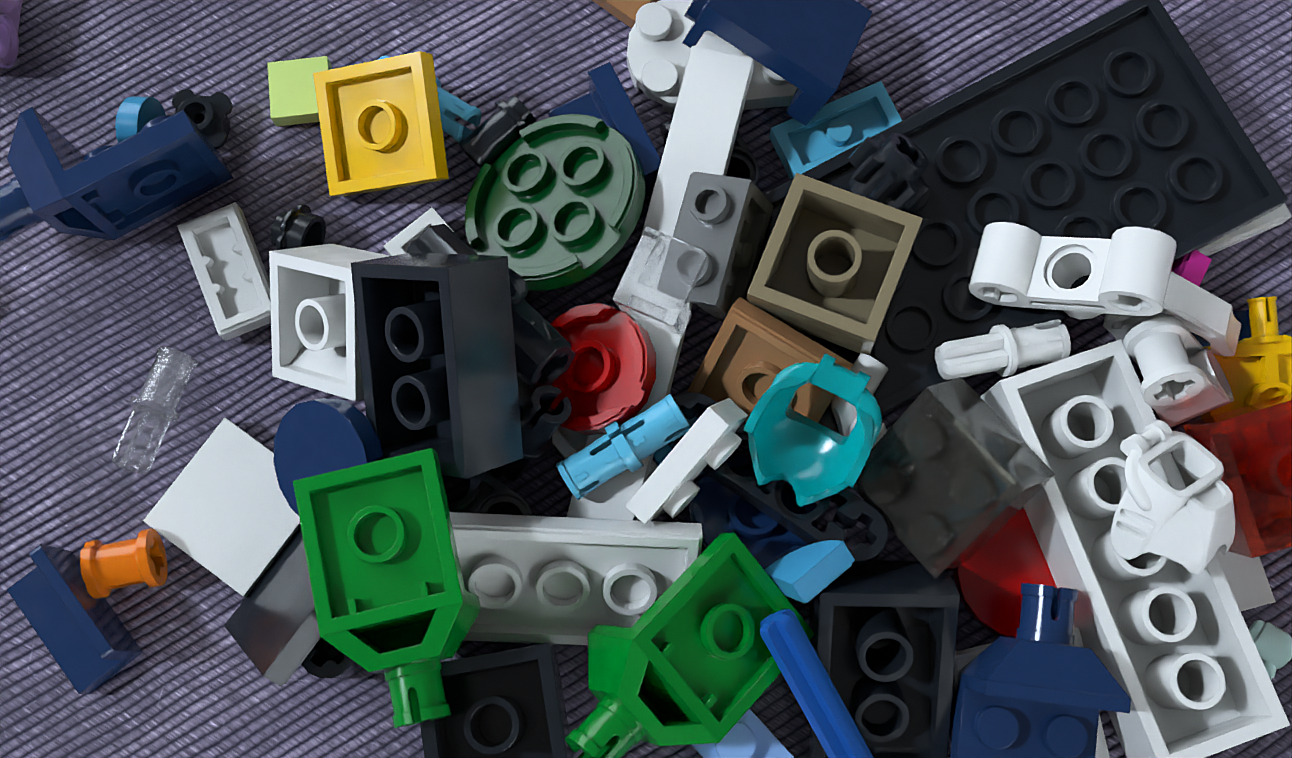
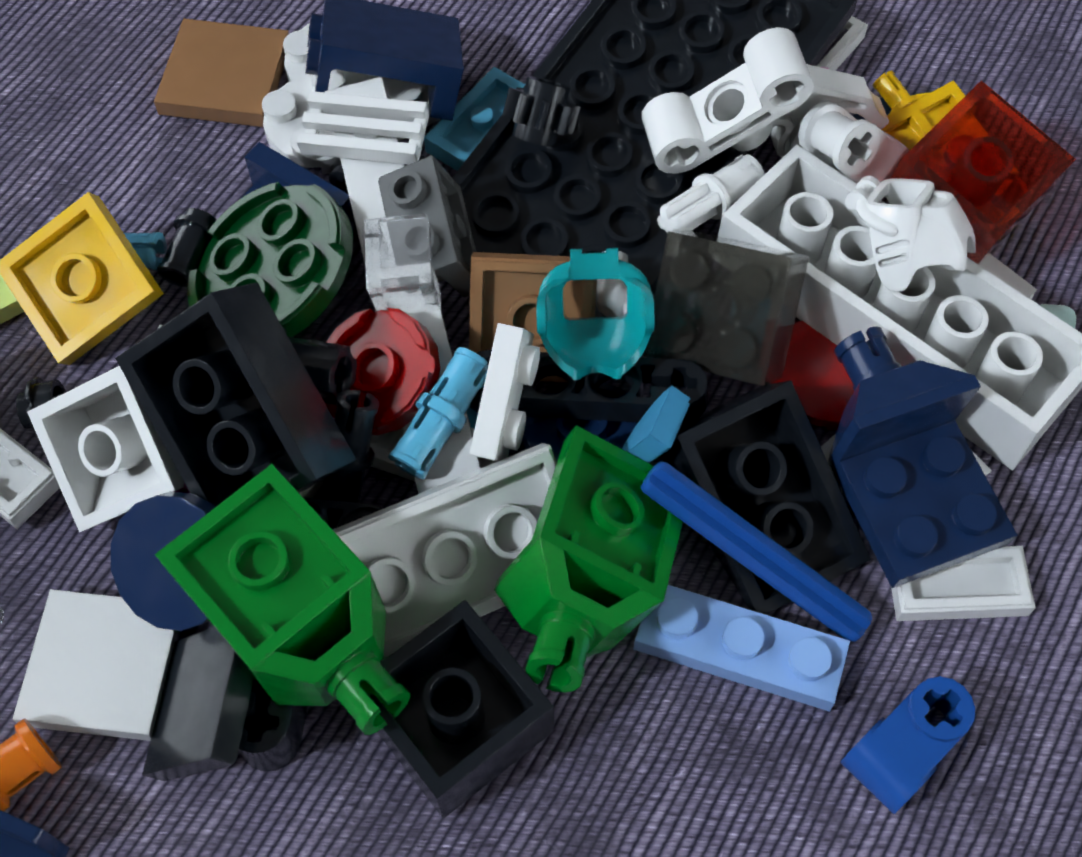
camera: 30 degrees left, 15 degrees down
(663, 80) = (366, 119): none -> white tile
(833, 263) = (537, 187): dark tan brick -> none

